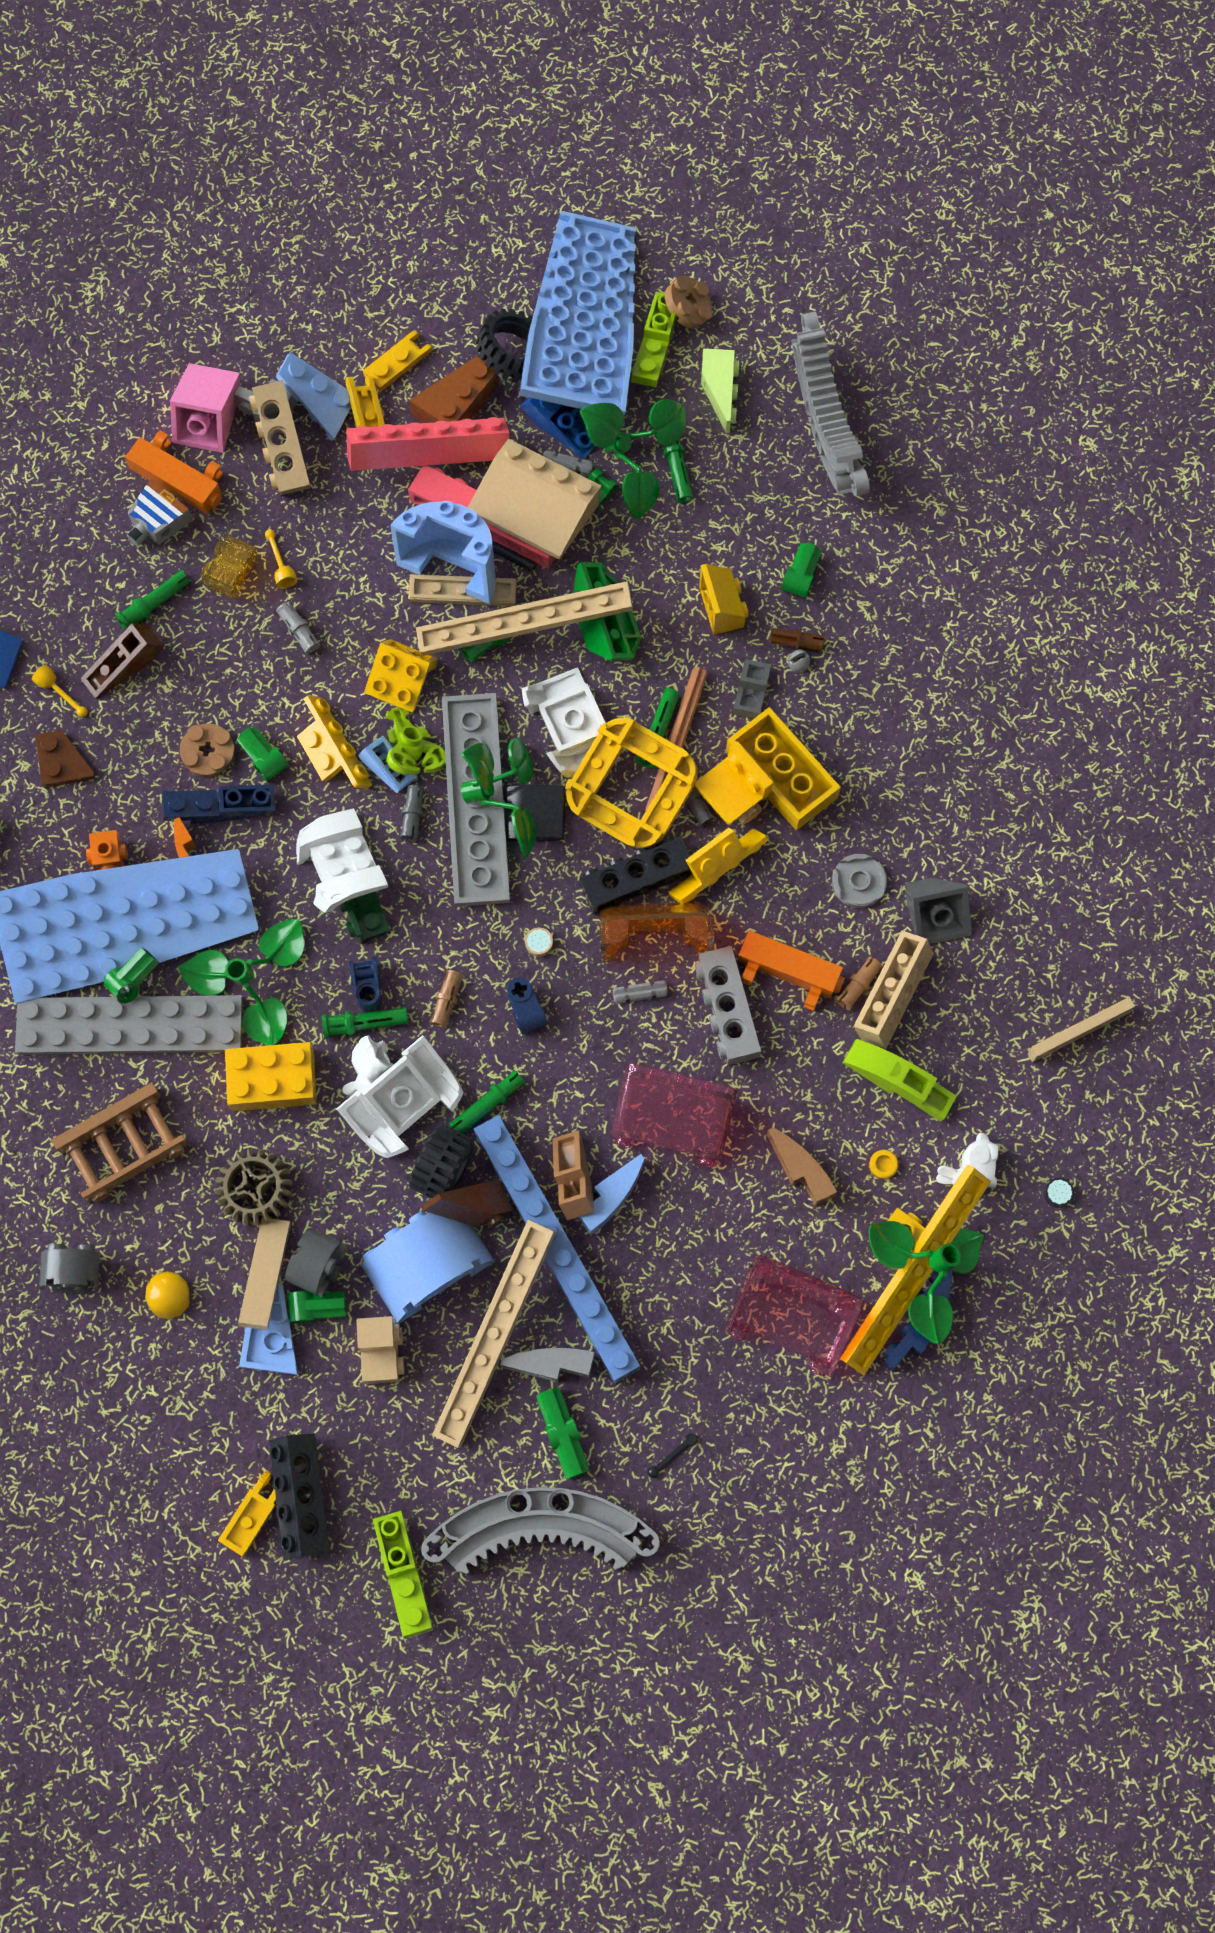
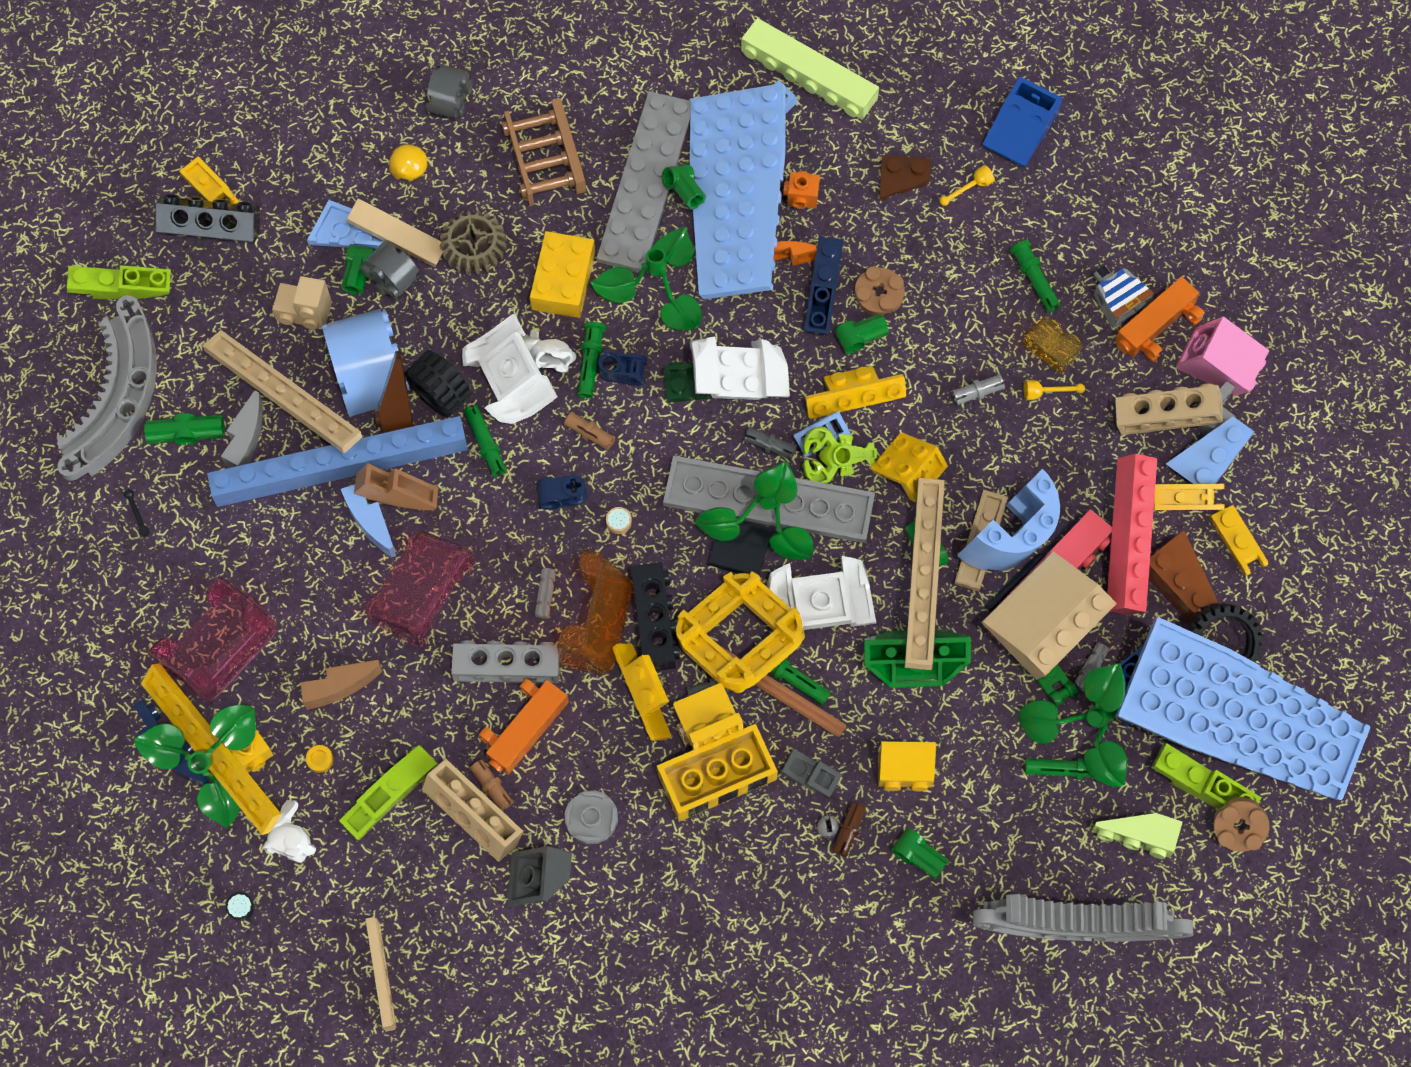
camera: 105 degrees right, 5 degrees down
(122, 659) = (984, 240): reddish brown slope -> none

